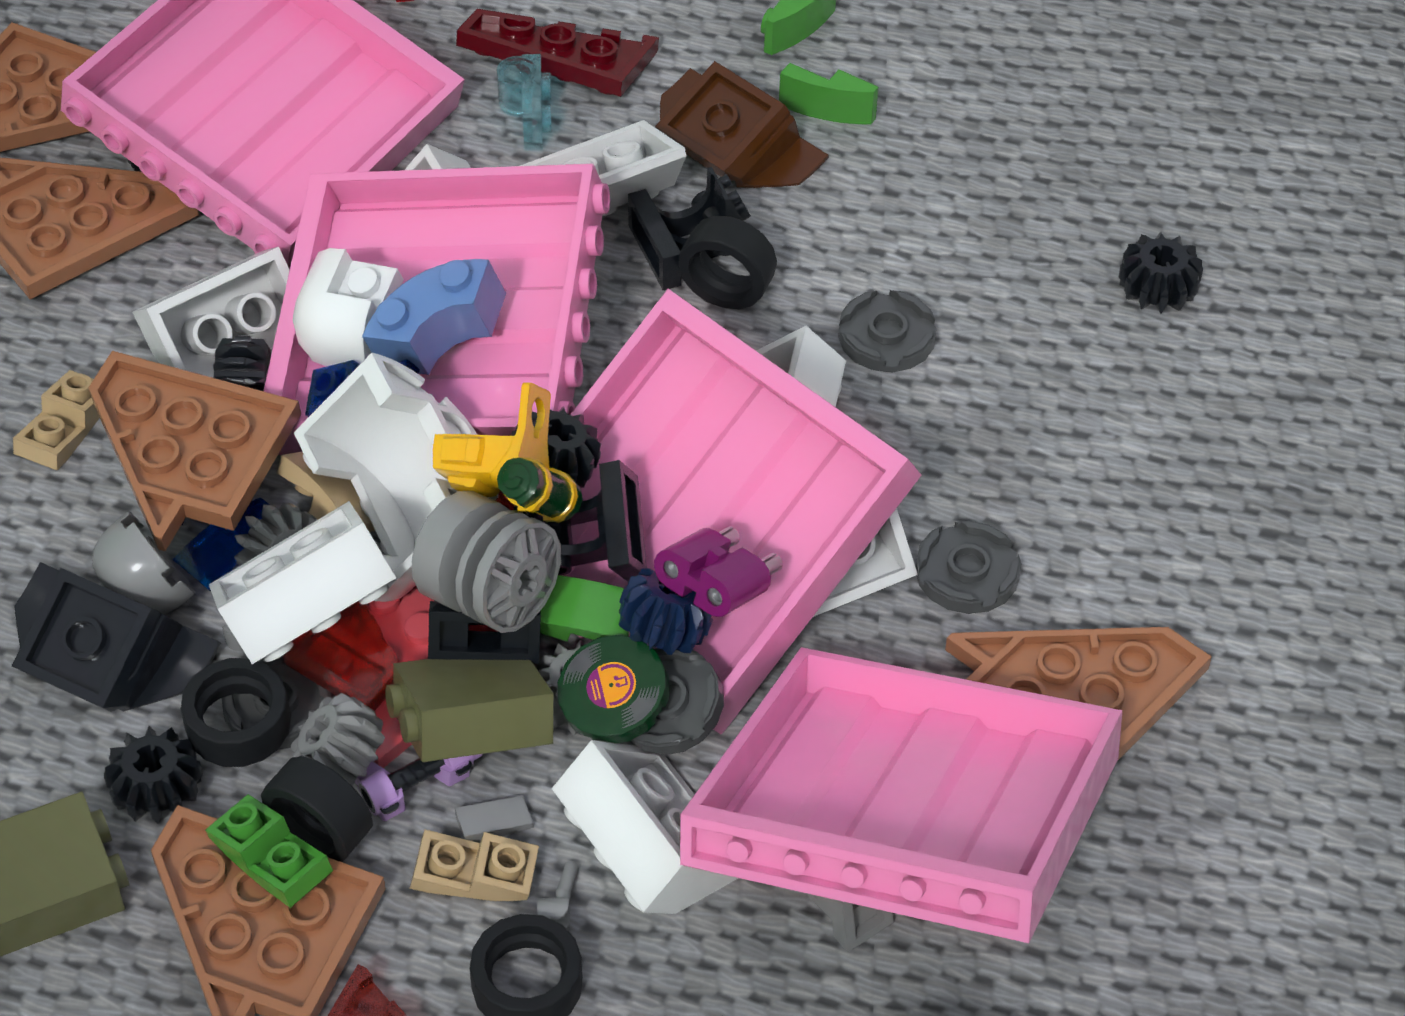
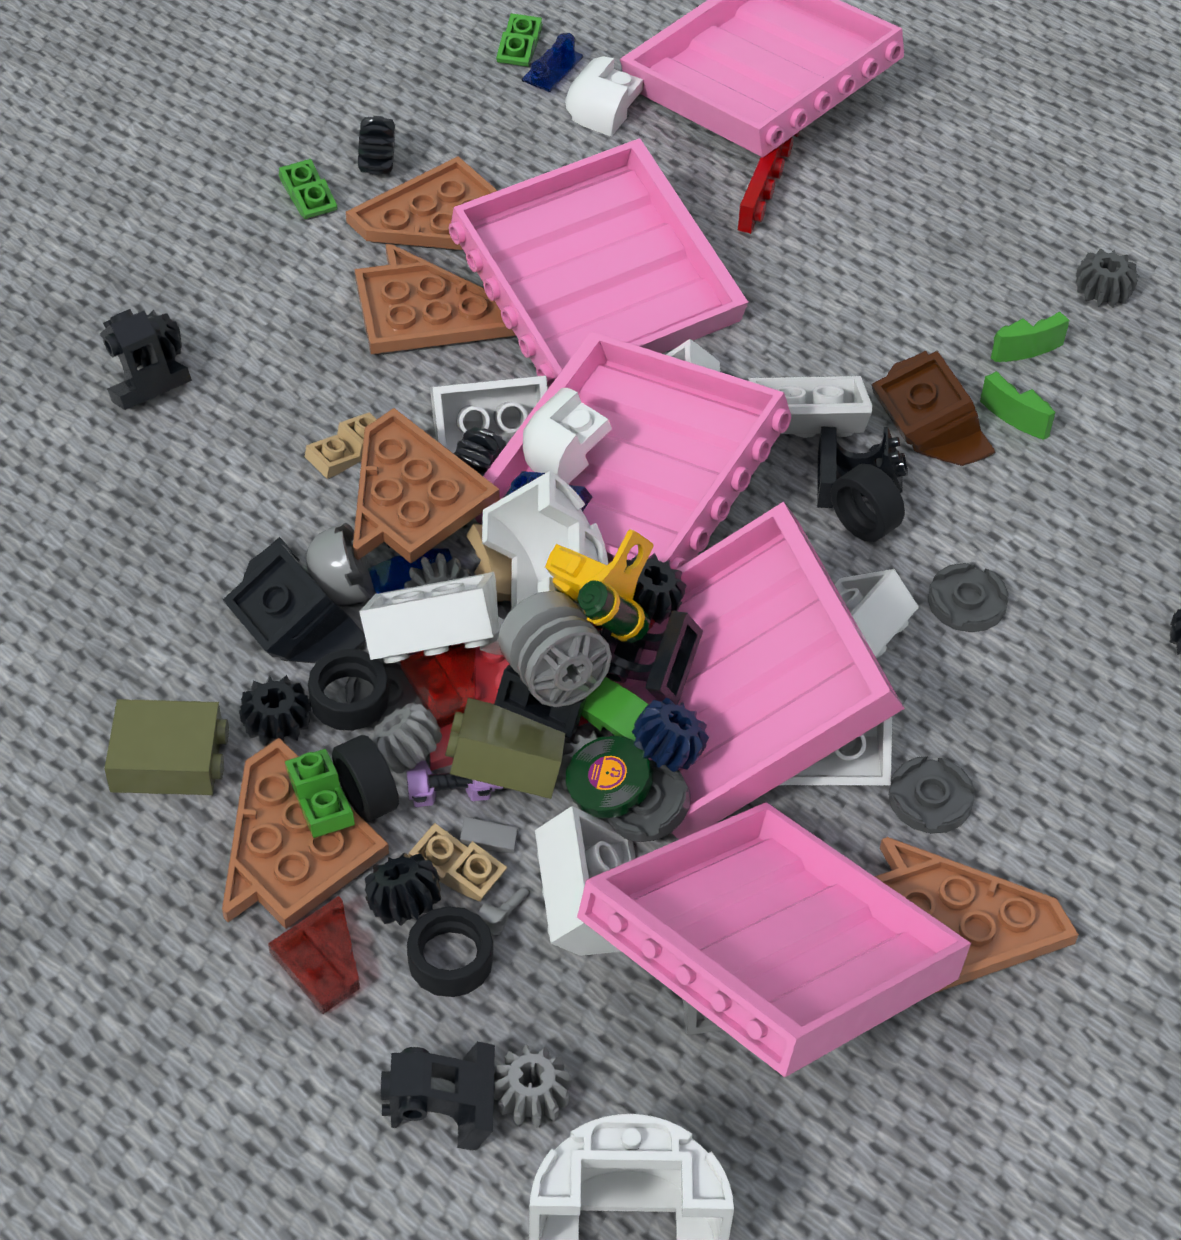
camera: 25 degrees right, 0 degrees up
(433, 922) = (402, 888): none -> black gear
(436, 312) = (619, 461): medium blue brick -> none
(521, 95) = (790, 325): clear light blue plate -> none
(570, 56) = (835, 304): dark red wing -> none
(717, 576) = (712, 720): magenta piece -> none

